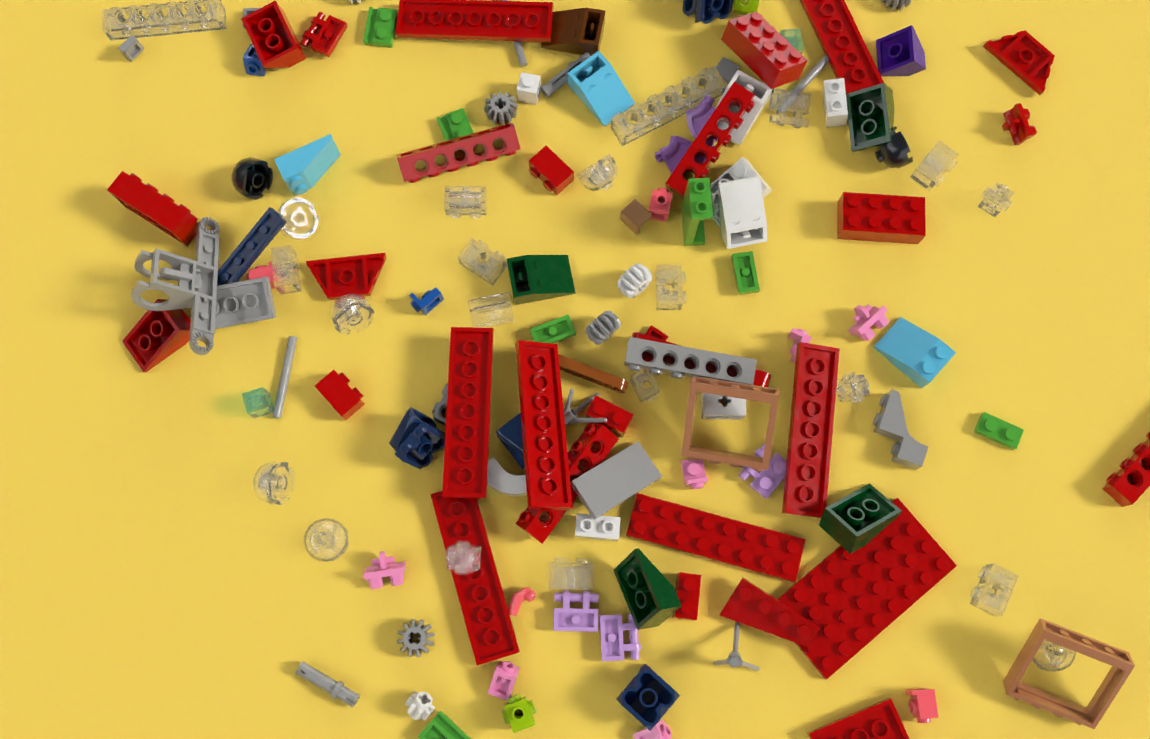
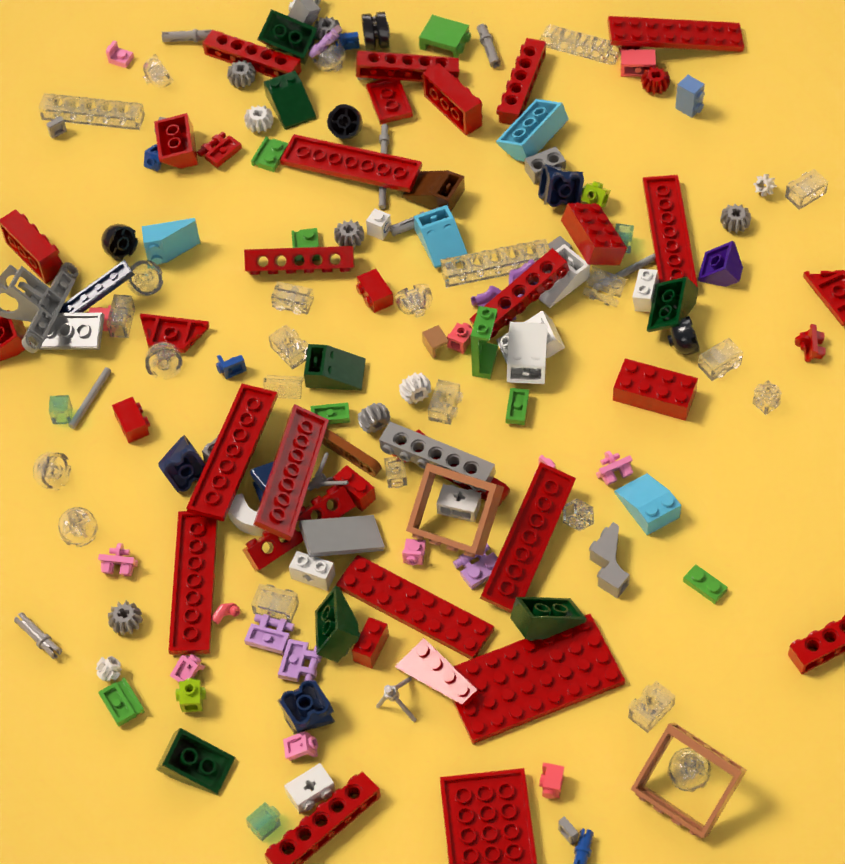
camera: 20 degrees right, 20 degrees down
(463, 557) = (187, 559): clear brick -> none

